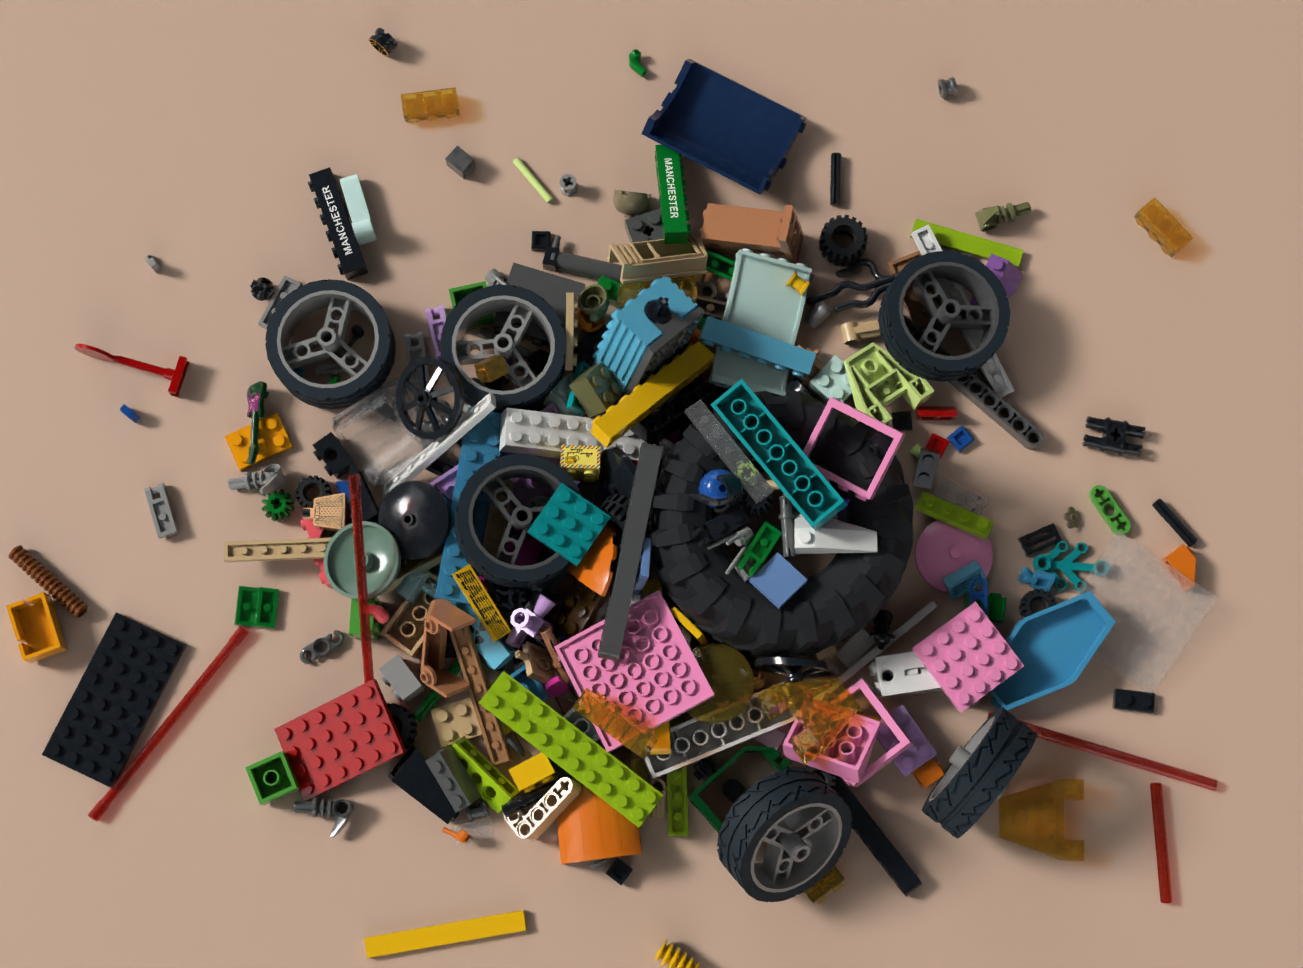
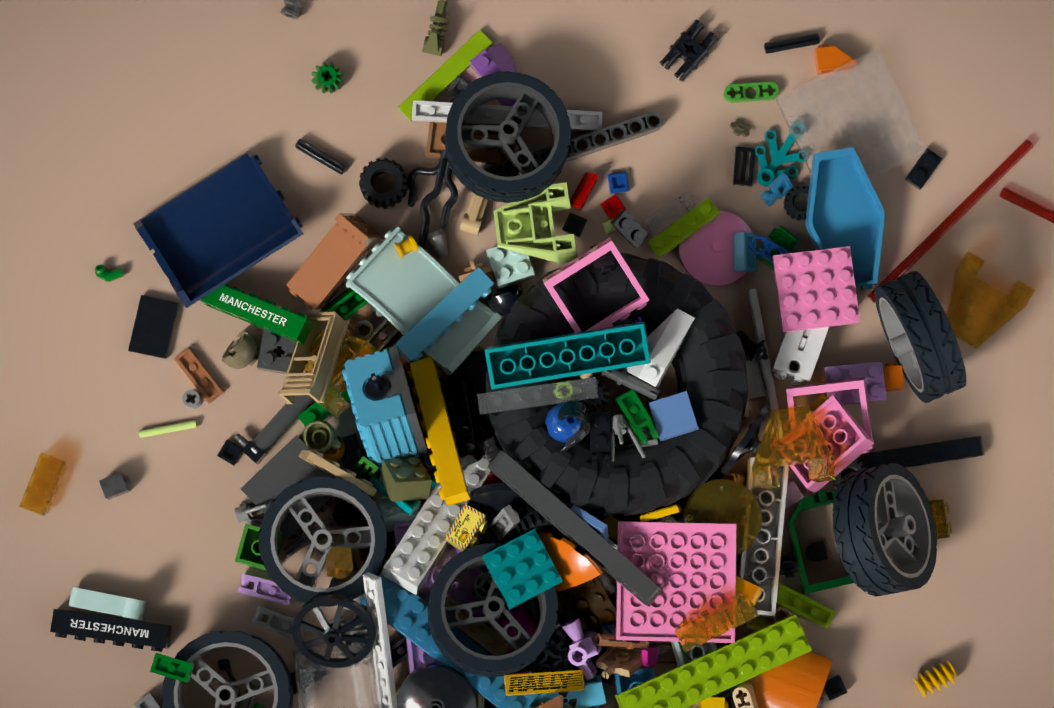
camera: 60 degrees left, 5 degrees up
(326, 281) = (172, 667): none -> green plate
(589, 350) = (369, 473): none -> bright green tile
(592, 180) = (199, 375): none -> nougat tile
(603, 490) = (504, 523): none -> light grey plate
(612, 122) = (153, 327): none -> black tile
(904, 153) = (333, 72): none -> green gear

